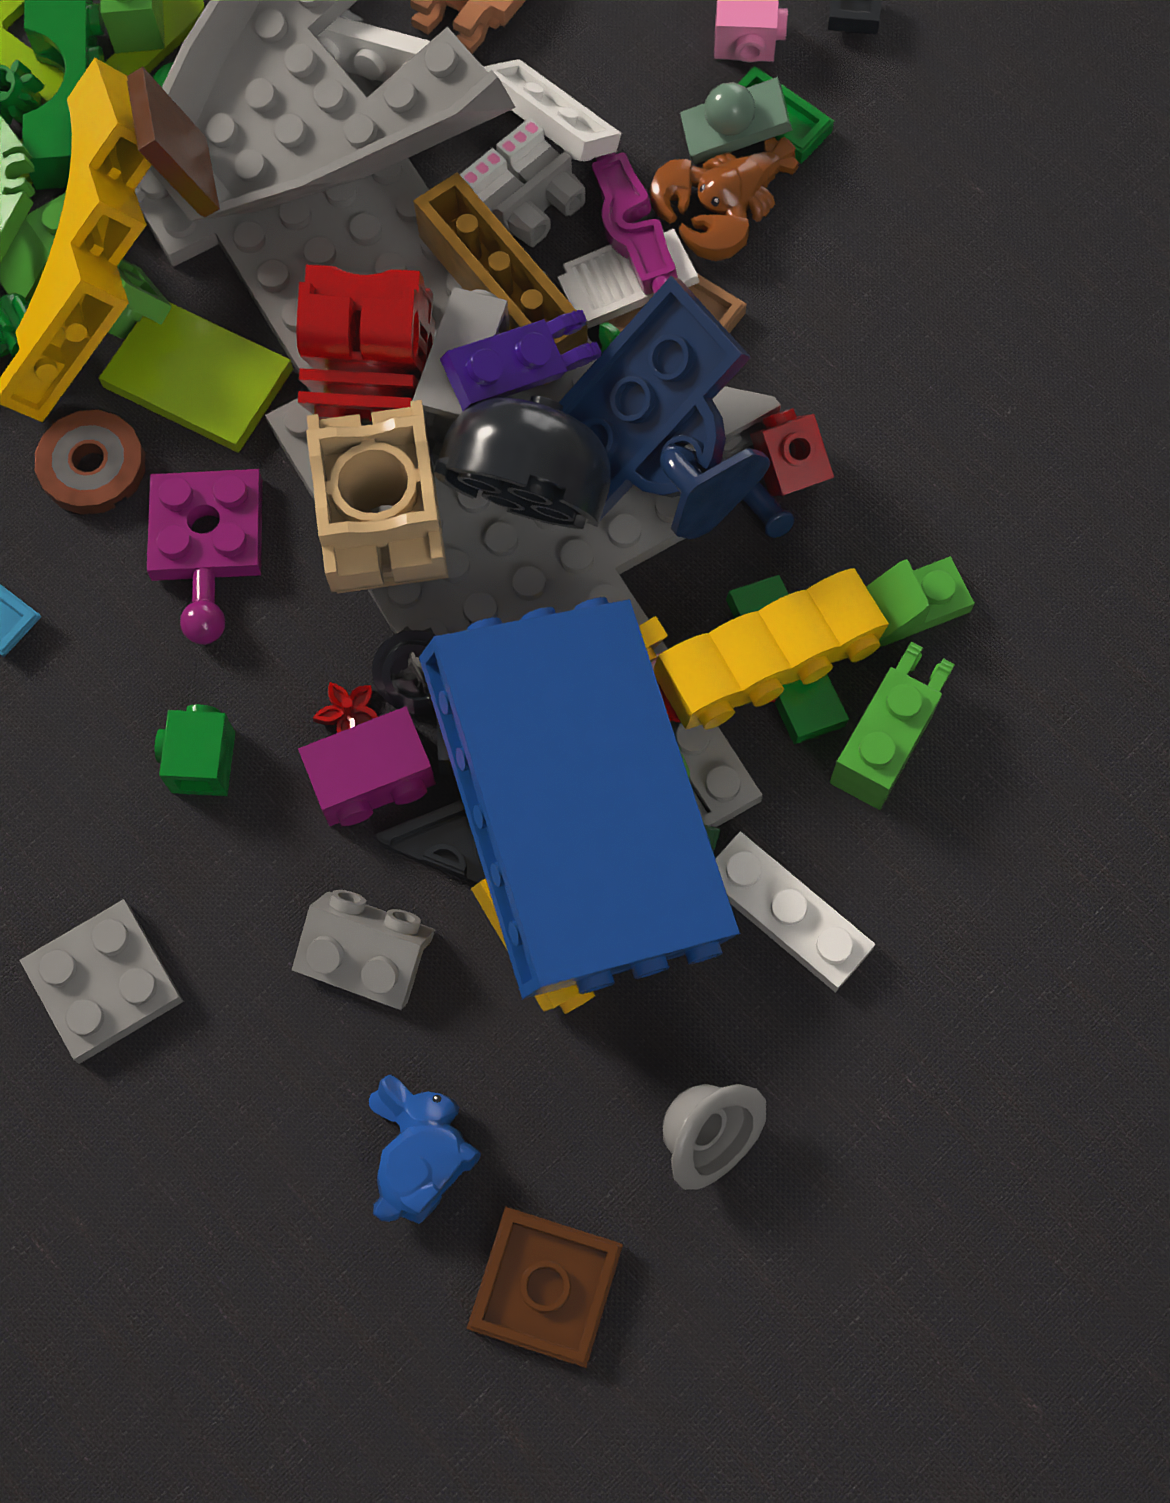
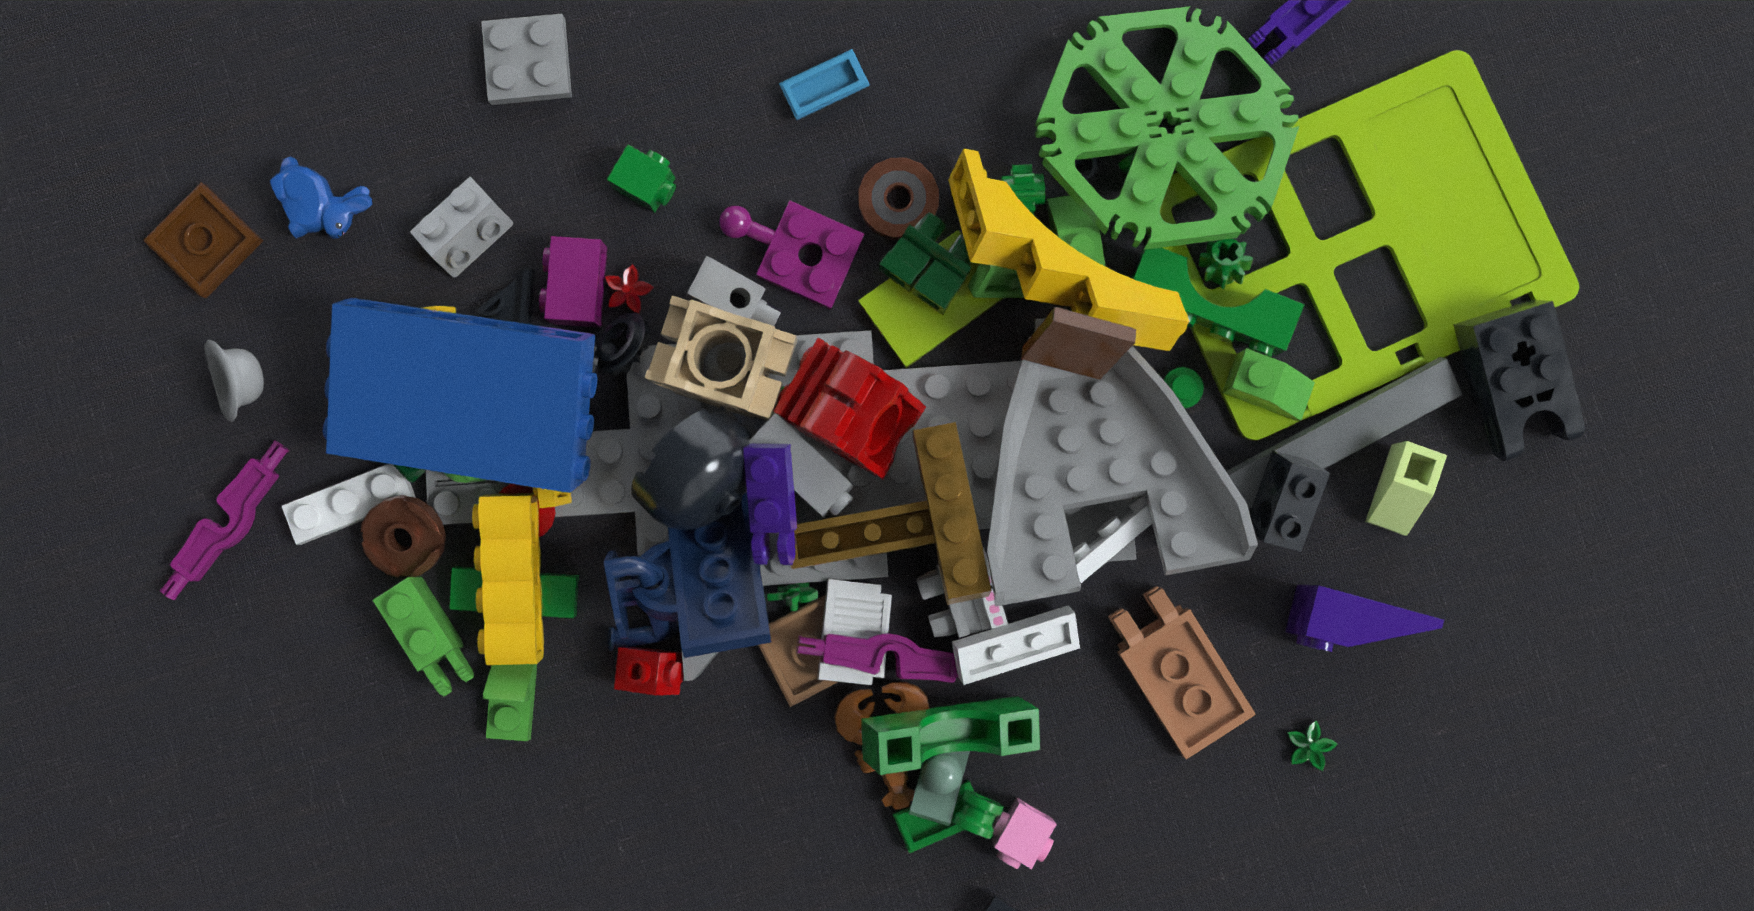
camera: 115 degrees right, 15 degrees up
(157, 375) = (916, 251): none -> dark green hips
(292, 565) = (717, 282): none -> light grey torso
(478, 156) = (951, 513): none -> pearl gold arch
(712, 143) = (909, 738): none -> green arch
(751, 58) = (977, 814): none -> green wheel
(772, 835) = (417, 519): none -> copper tile
(928, 1061) = (210, 538): none -> magenta piece

